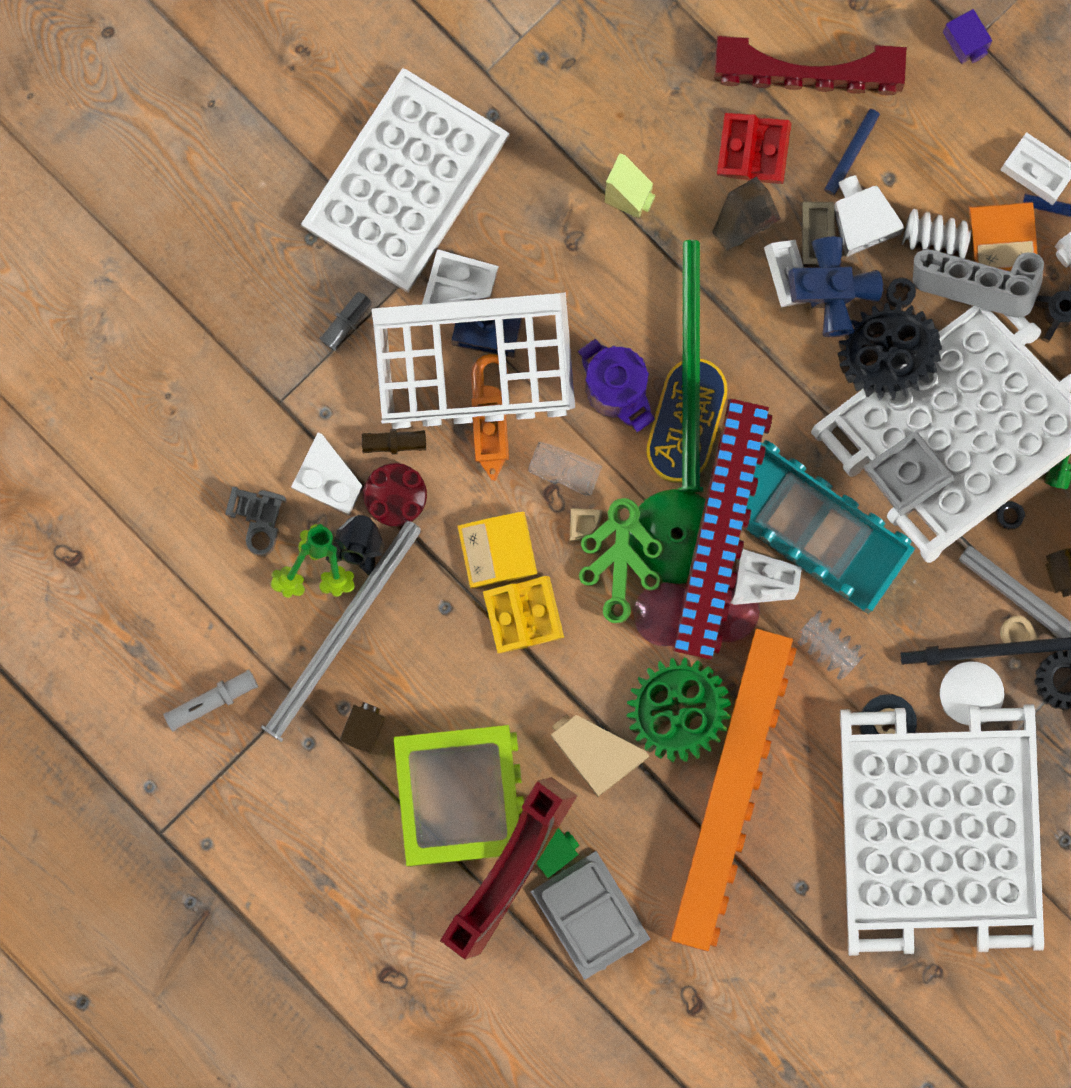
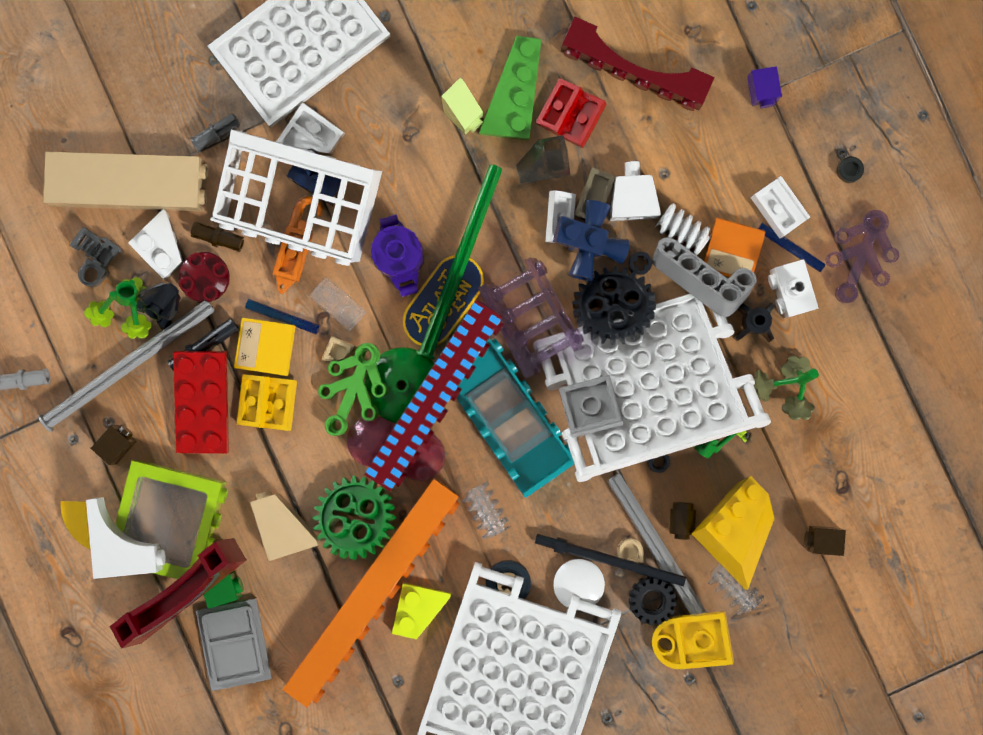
camera: 15 degrees right, 5 degrees up
(262, 416) = (124, 181): none -> tan brick
(363, 841) = (76, 521): none -> yellow tile
(420, 848) = (115, 552): none -> white arch
(424, 575) = (206, 343): none -> black pin
(447, 641) = (201, 402): none -> red plate
(503, 507) = (282, 316): none -> clear blue bar
(681, 155) = (514, 97): none -> bright green wing
(764, 579) = (454, 443): white wing -> none
(792, 793) = (417, 609): none -> neon yellow wing
(793, 431) = (516, 338): none -> fence
(852, 151) = (644, 142): dark blue bar -> none

